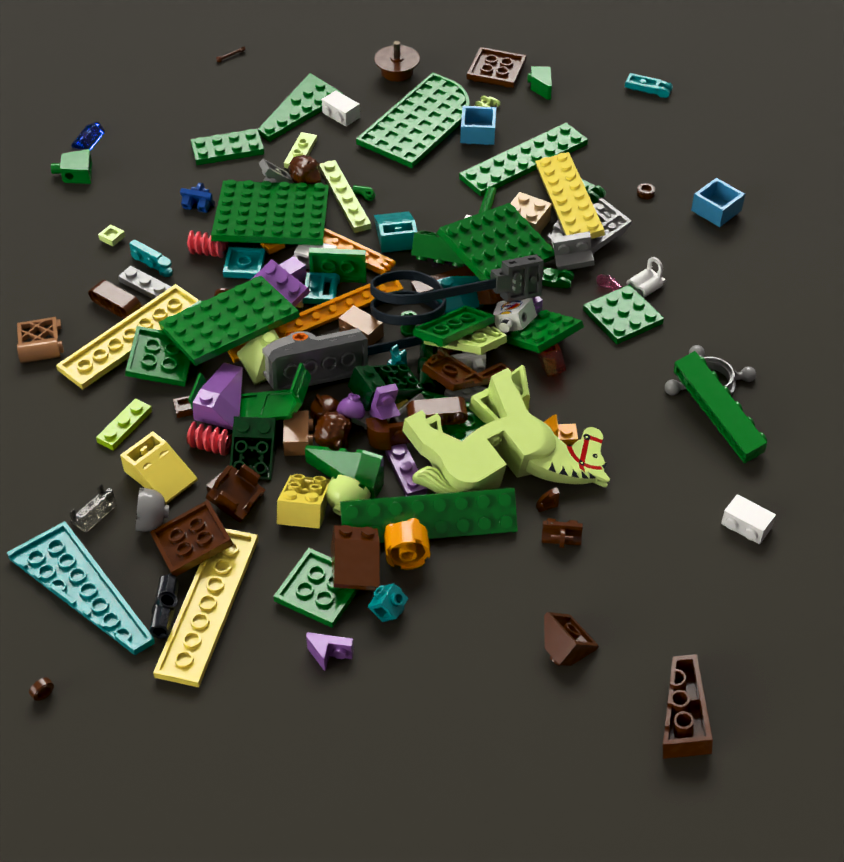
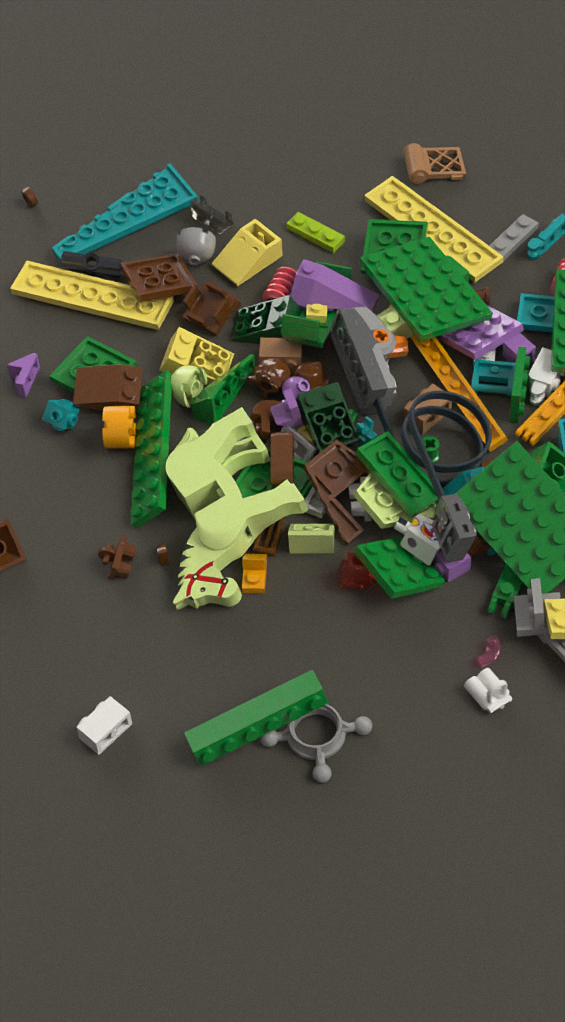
camera: 100 degrees right, 5 degrees up
(114, 299) = (485, 212): reddish brown beam -> none
(250, 403) = (317, 312): none -> light yellow plate
(623, 314) = (436, 660): plate -> none

